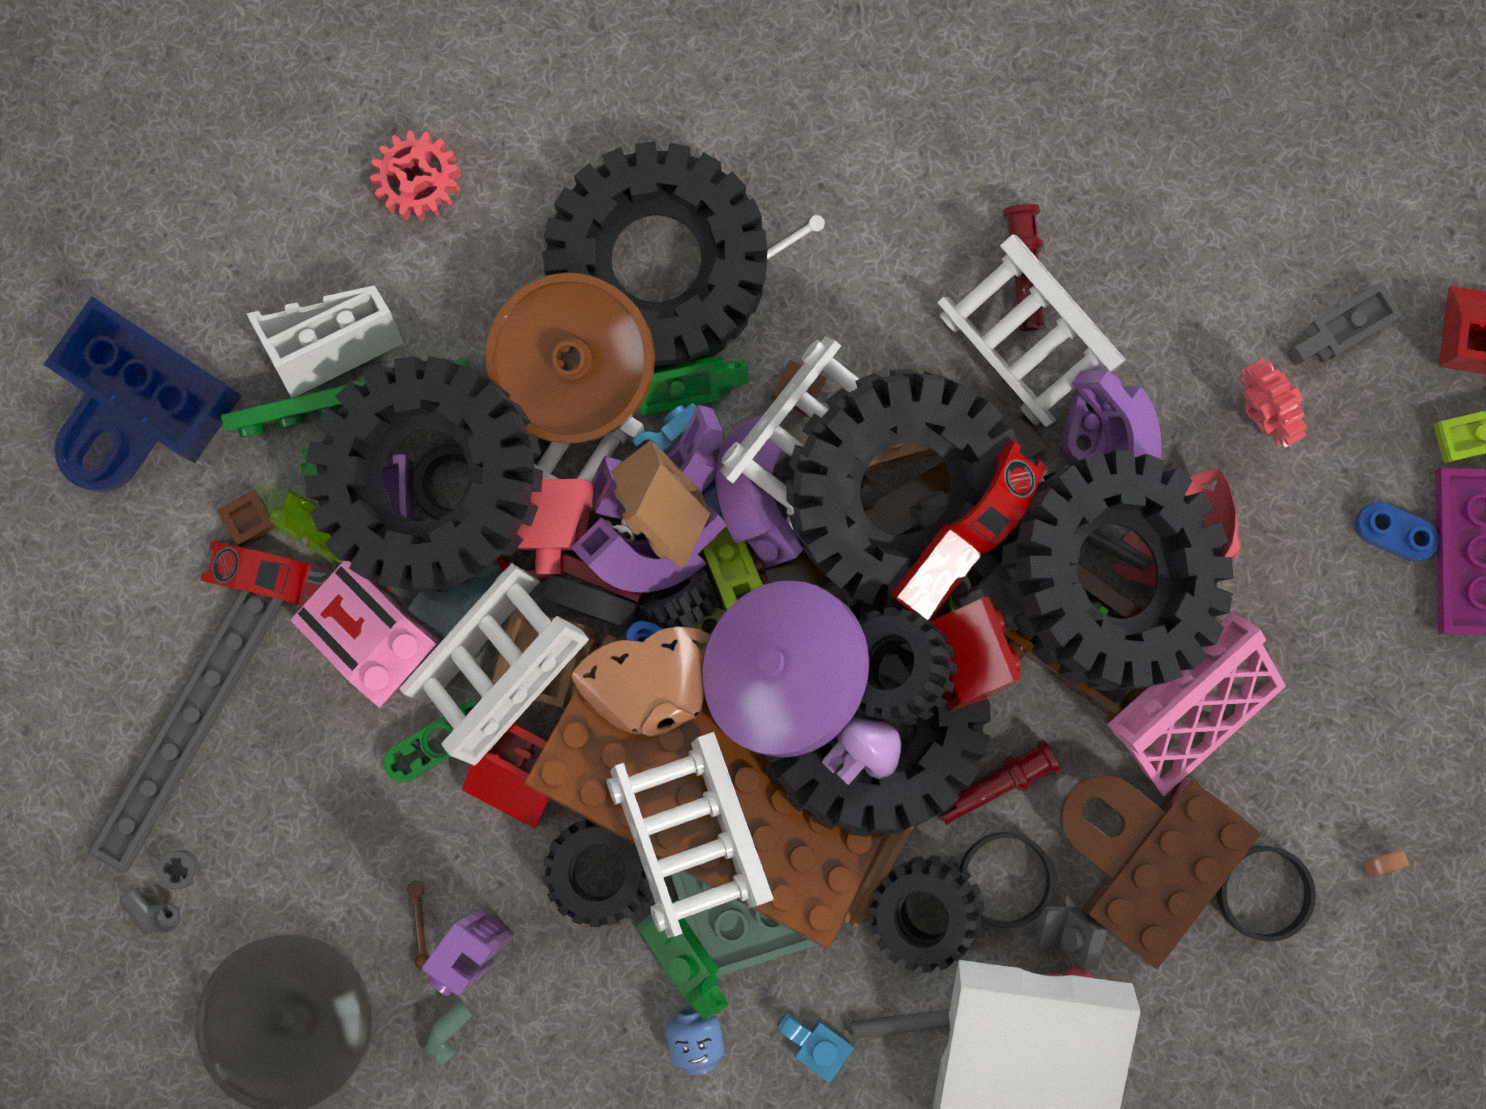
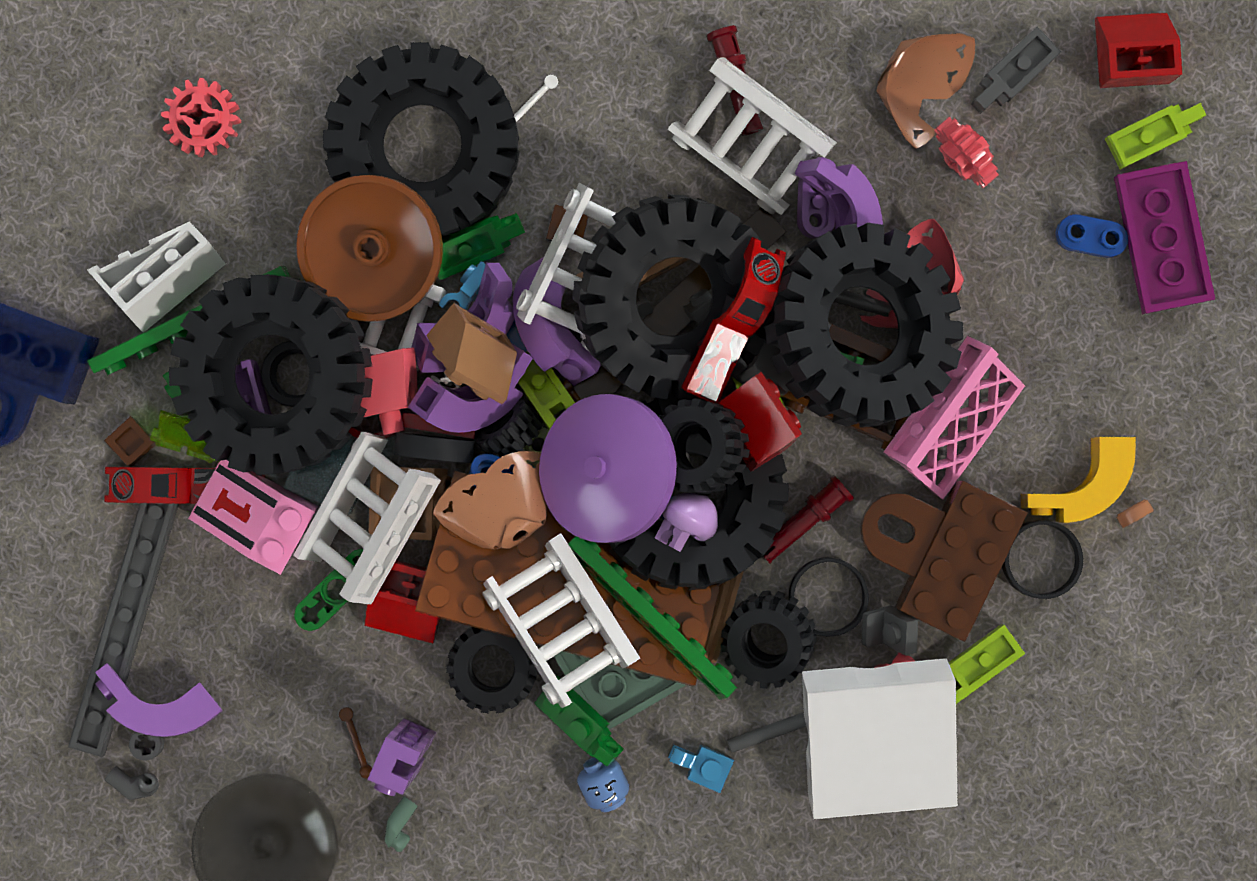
camera: 20 degrees left, 5 degrees up
(202, 846) = (159, 720): none -> medium lavender arch
(804, 867) = (661, 626): none -> green plate
(1176, 996) = (984, 660): none -> lime plate
(1237, 304) = (919, 73): none -> nougat piece
(1360, 816) = (1107, 478): none -> yellow arch

